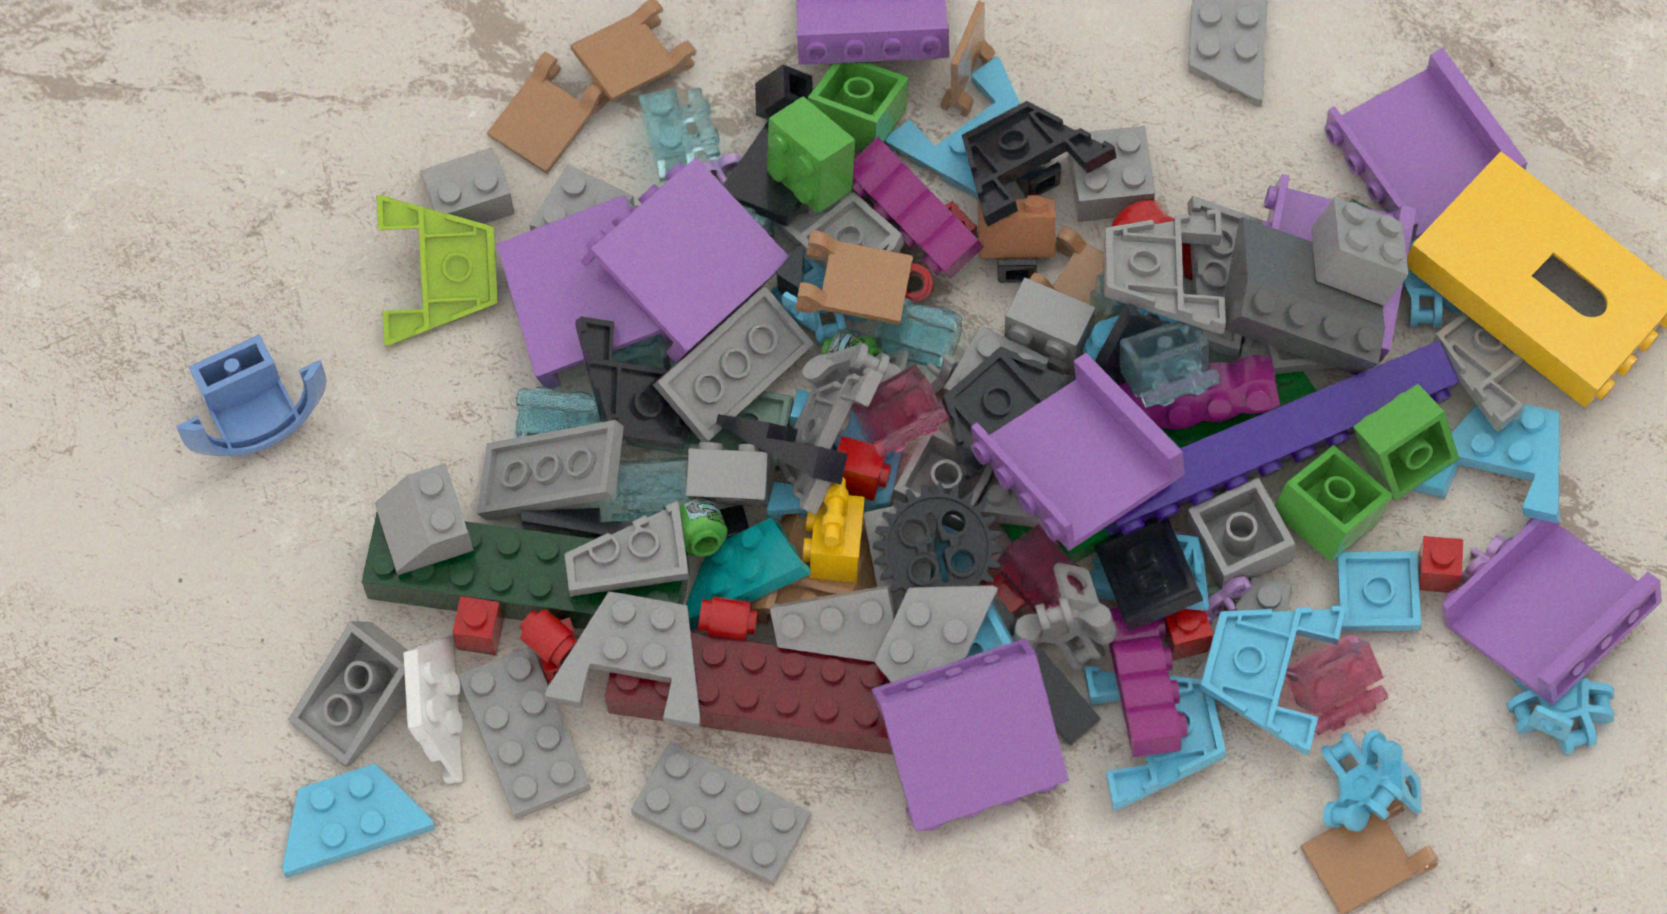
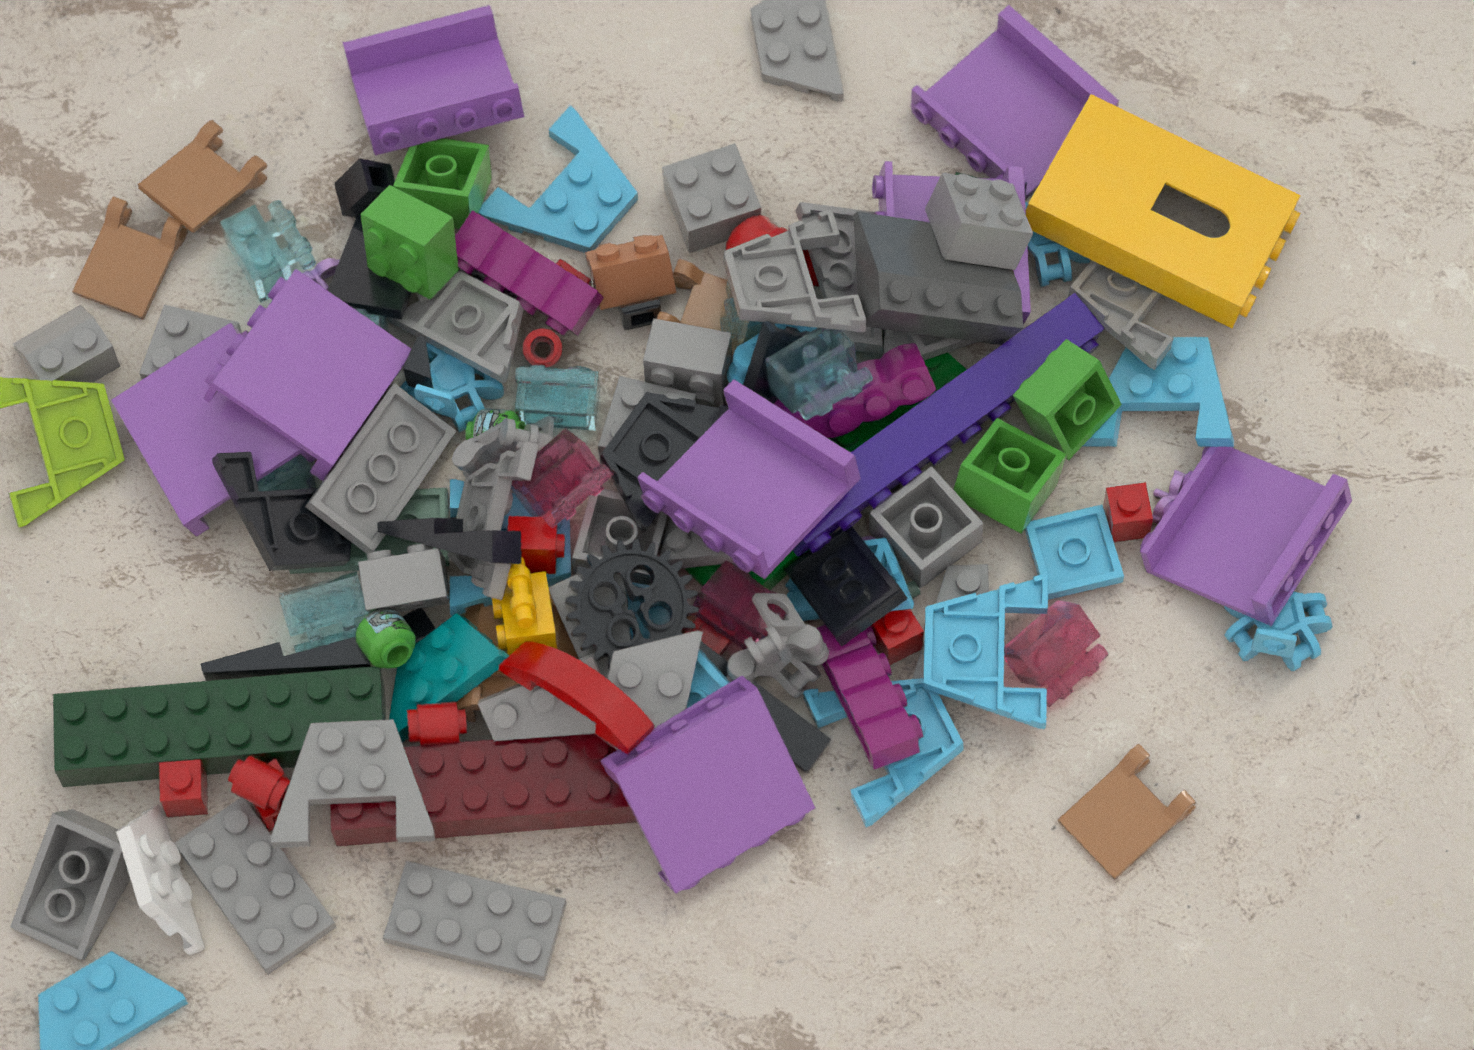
camera: 15 degrees left, 0 degrees up
(423, 520) = (104, 694): light grey slope -> none
(547, 410) = (215, 564): clear light blue brick -> none
(550, 470) = (221, 615): light grey plate -> none
(633, 557) = (328, 682): light grey wing -> none
(856, 280) = (486, 357): medium nougat flag -> none
(870, 617) = (583, 689): none -> red slope
(944, 374) = (594, 434): light grey piece -> none
(969, 50) = (544, 103): medium nougat flag -> none
(1019, 143) = (616, 186): black wing -> none
(1040, 179) = (642, 218): black slope -> none
(1222, 600) = (923, 594): lavender piece -> none
(1366, 785) = (1110, 745): medium azure piece -> none

